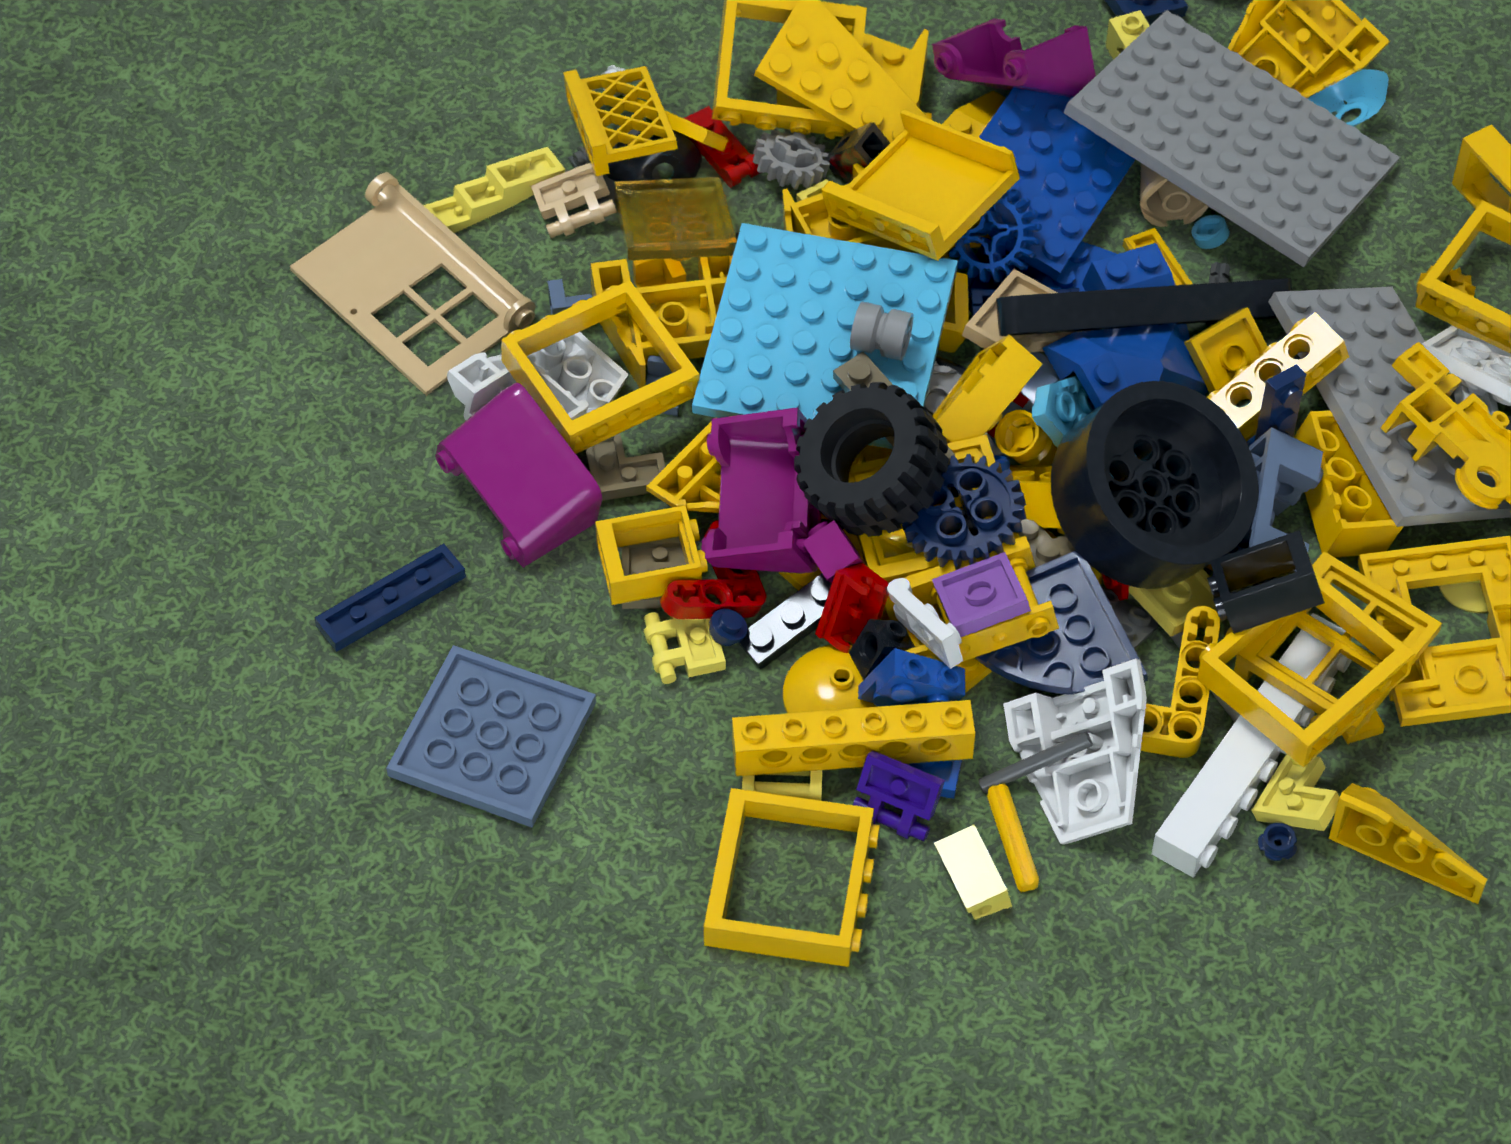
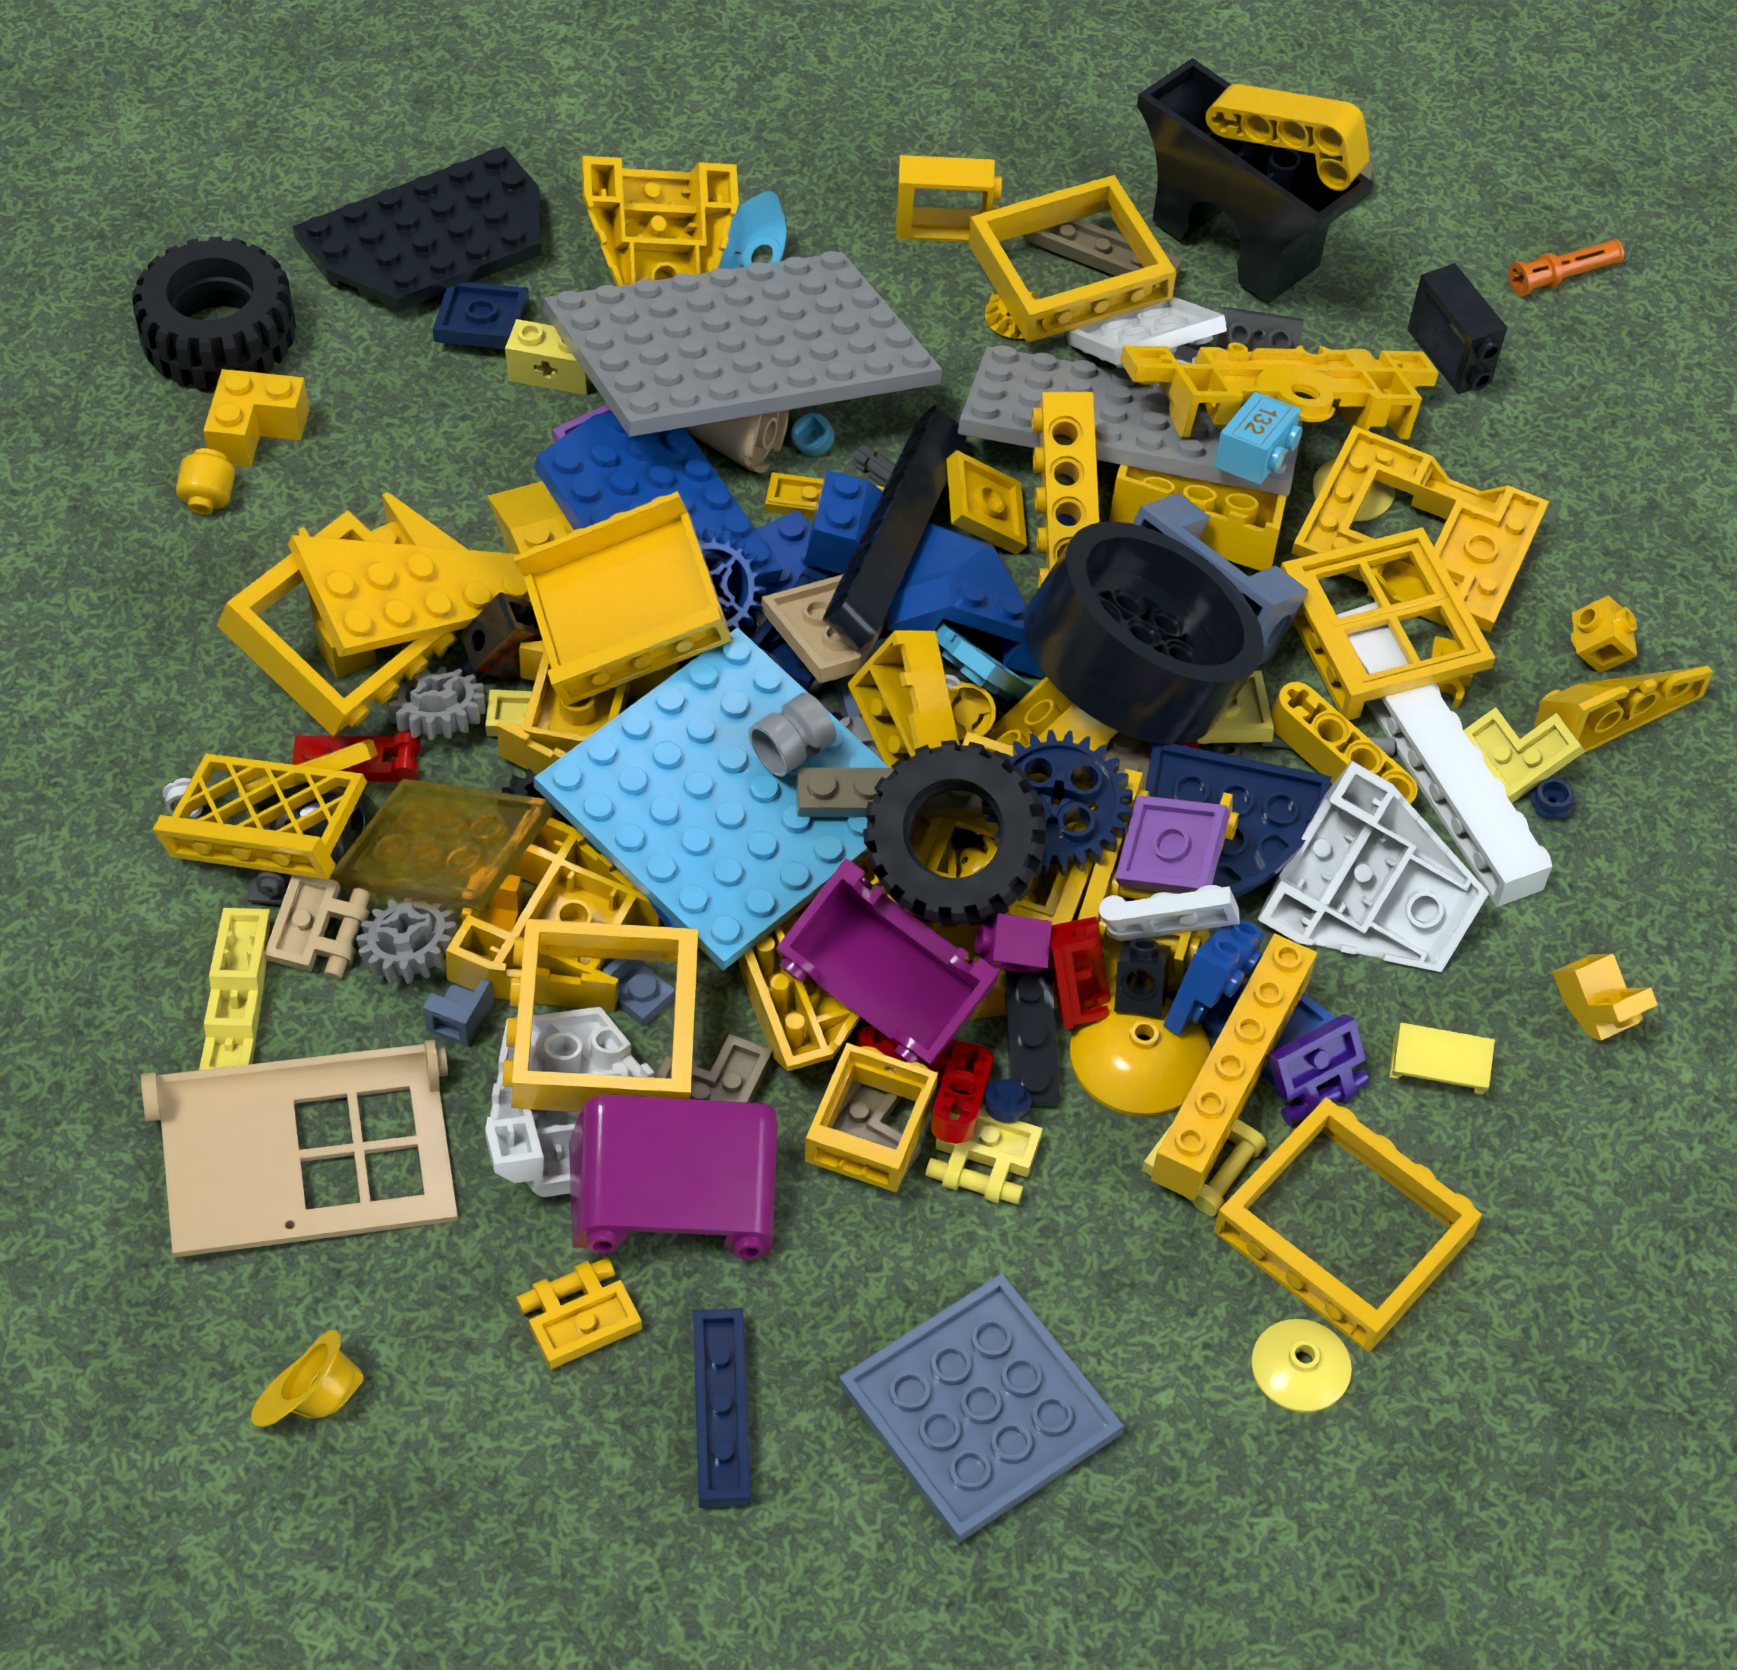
camera: 60 degrees left, 0 degrees up
(254, 388) = (311, 1385): none -> yellow piece
(399, 497) = (584, 1323): none -> yellow plate
(593, 244) = (407, 939): none -> light grey gear
(663, 923) = (1299, 1384): none -> light yellow dish
(995, 60) = (470, 468): magenta windscreen -> none
(1013, 838) = (1413, 1005): yellow axle -> none
(1036, 761) = (1353, 931): dark grey bar -> none
(1111, 947) = (1599, 997): none -> yellow brick
(1269, 599) = (1331, 571): black window -> none
(1281, 401) = (1129, 486): dark blue plate -> none
(1294, 740) = (1373, 721): yellow window -> none
(1412, 468) = (1258, 438): none -> medium azure brick
(1464, 800) = (1604, 634): none -> yellow brick

